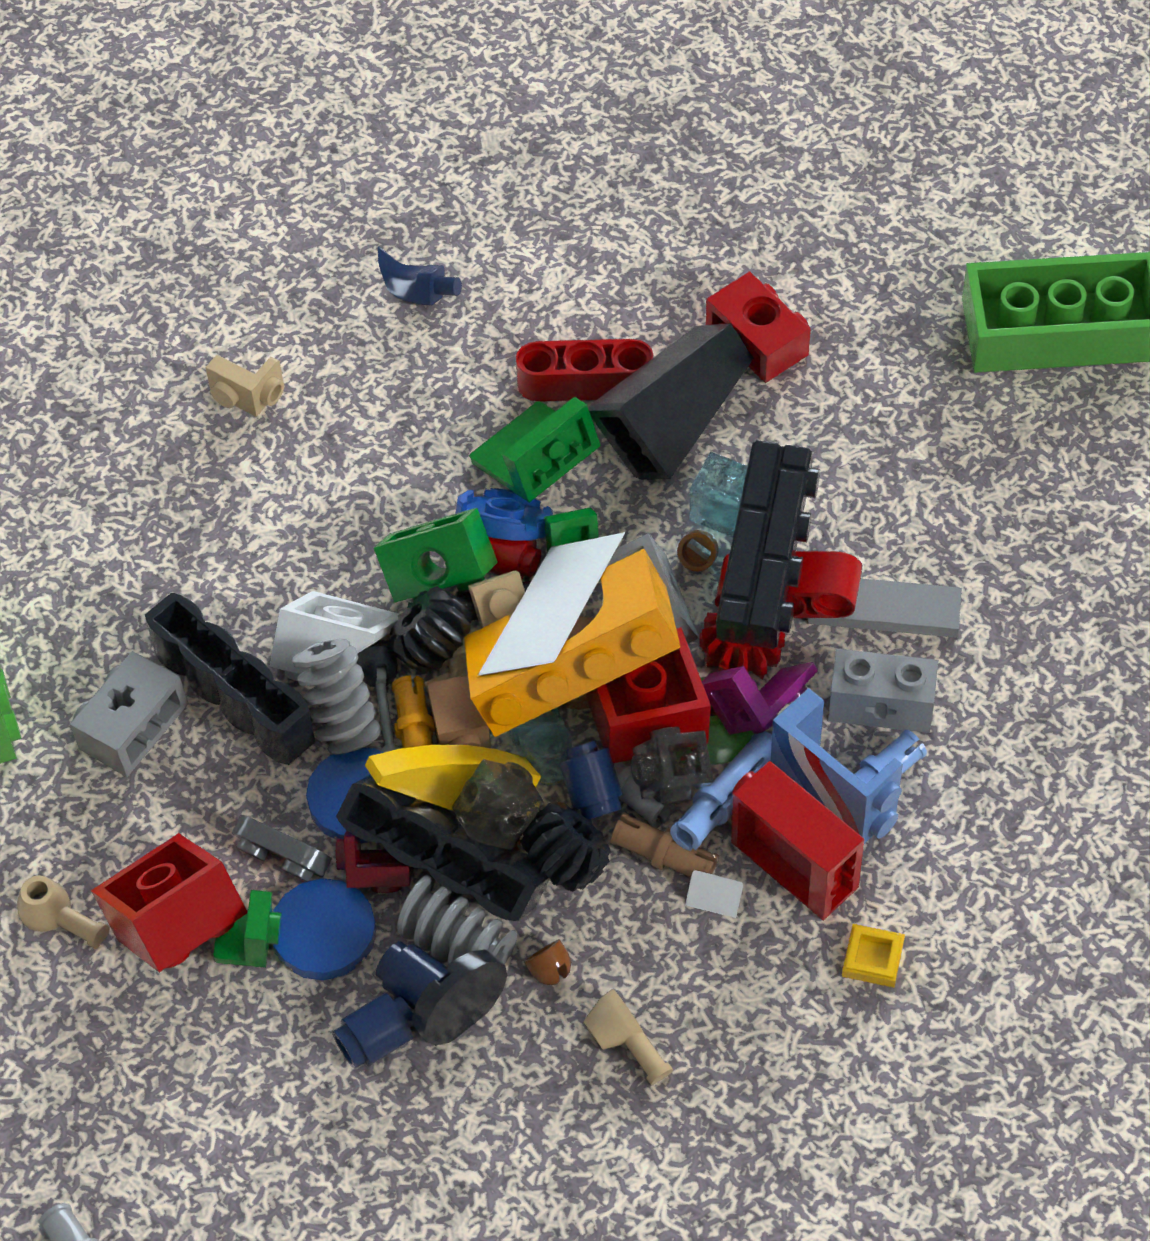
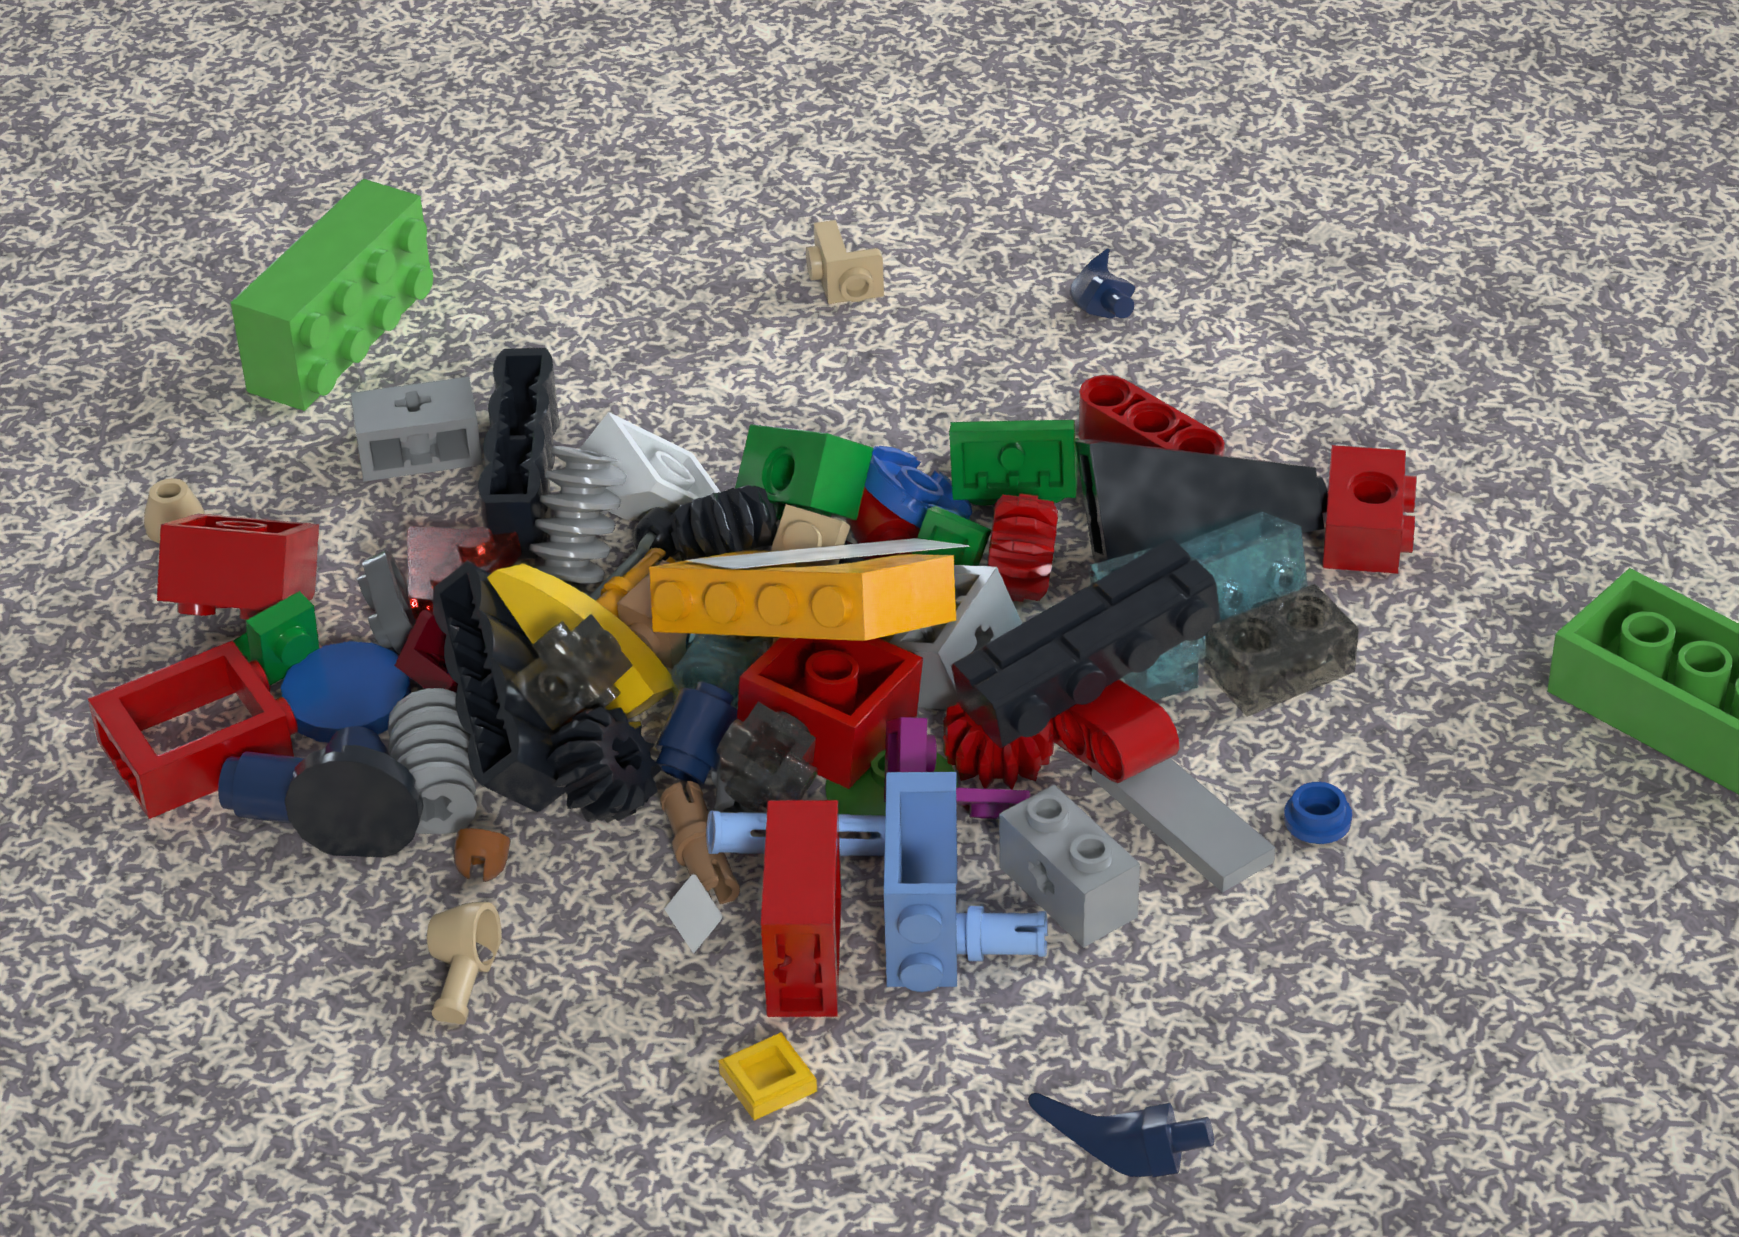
camera: 45 degrees right, 15 degrees down
(261, 1083) = (194, 768): none -> red window
(287, 792) = (439, 551): none -> clear red wing
(617, 500) = (1023, 544): none -> red gear
(750, 412) = (1251, 561): none -> clear light blue brick
(833, 455) = (1281, 649): none -> clear smoke brick
(955, 536) = (1318, 813): none -> blue plate
(1095, 828) = (1130, 1142): none -> dark blue bar

